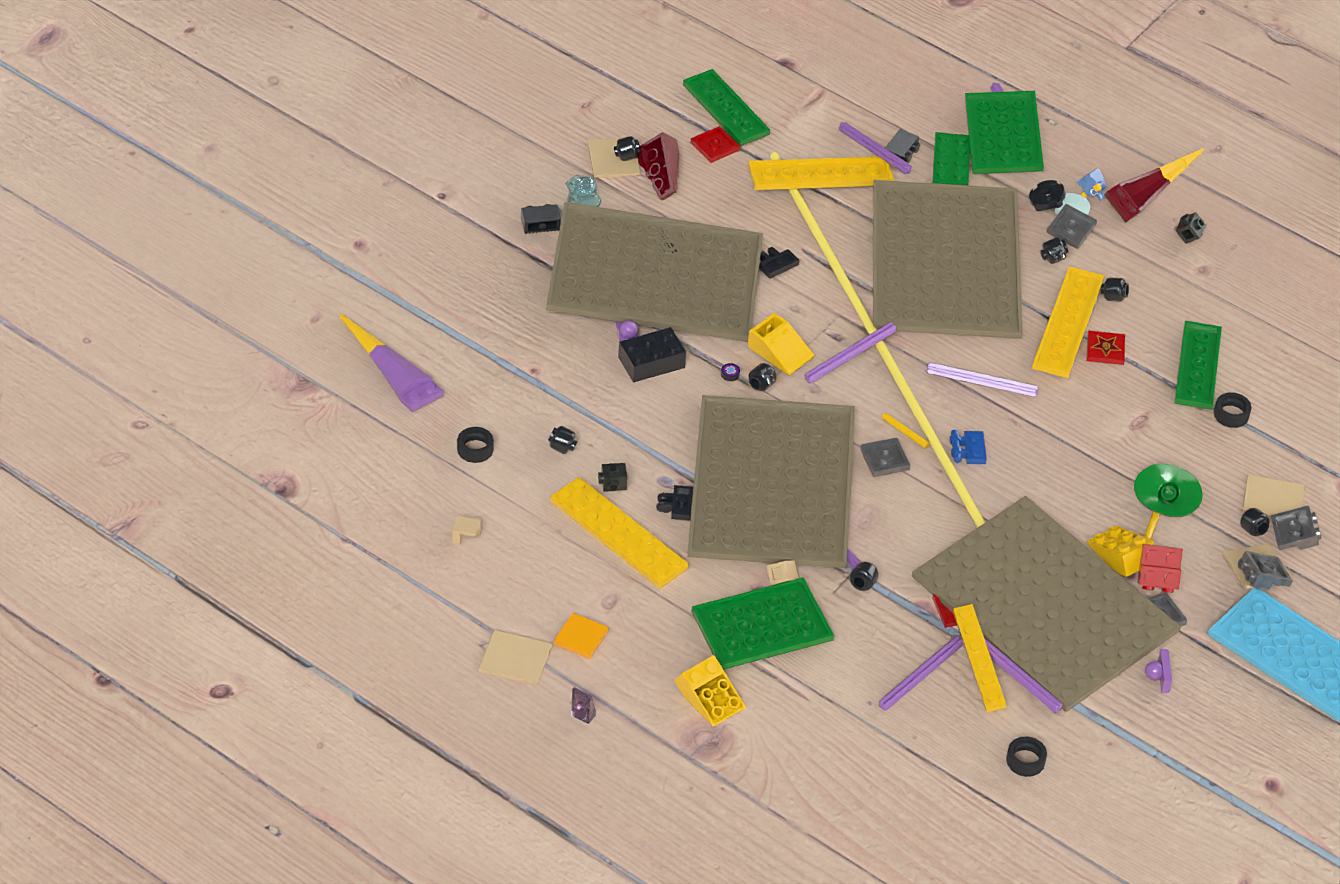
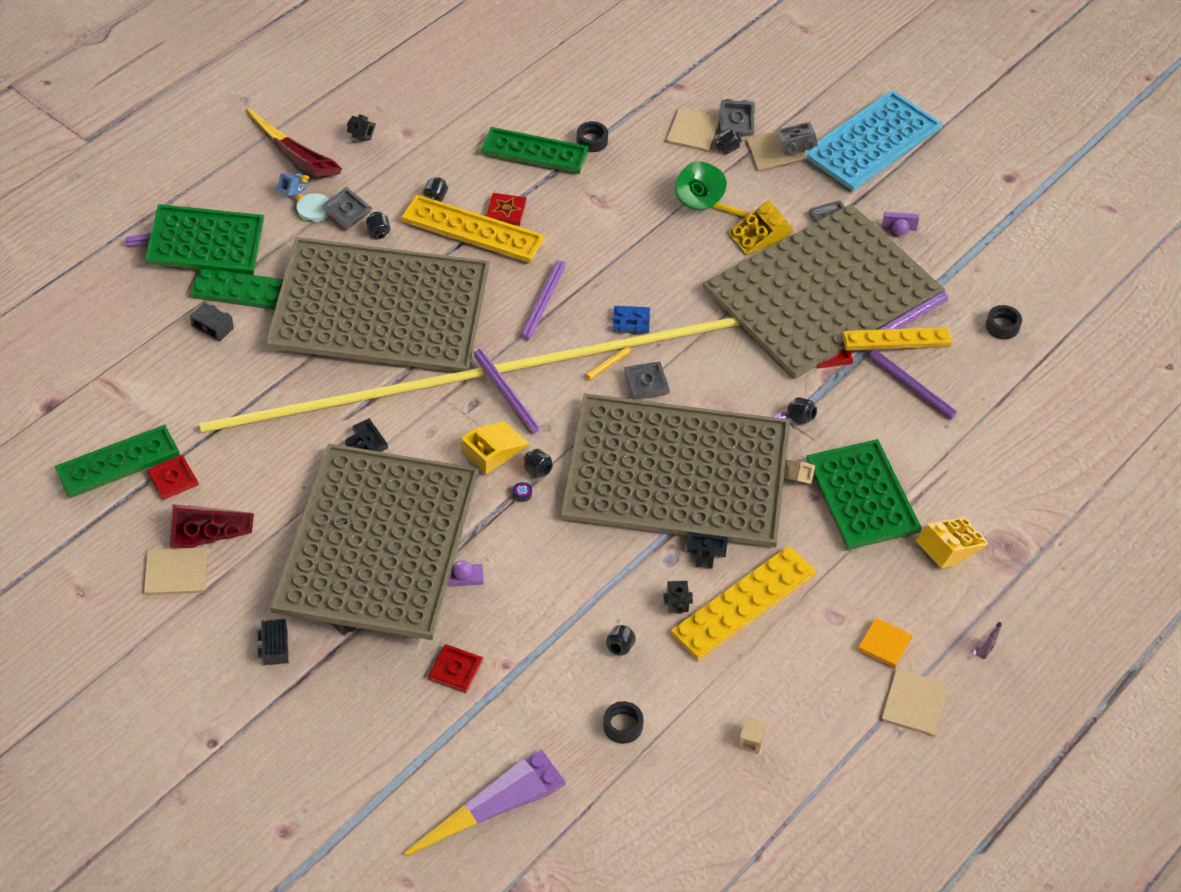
camera: 85 degrees left, 5 degrees up
(526, 336) = (455, 668): none -> red tile
(583, 191) = (241, 600): clear light blue helmet -> none
(627, 148) = (176, 551): black head -> none
(652, 354) = (500, 552): black brick -> none
(818, 172) = (243, 389): yellow plate -> none
(875, 148) = (212, 339): medium lavender axle -> none
(1043, 202) = (303, 229): black plate -> none
(1160, 567) = (791, 204): plate -> none

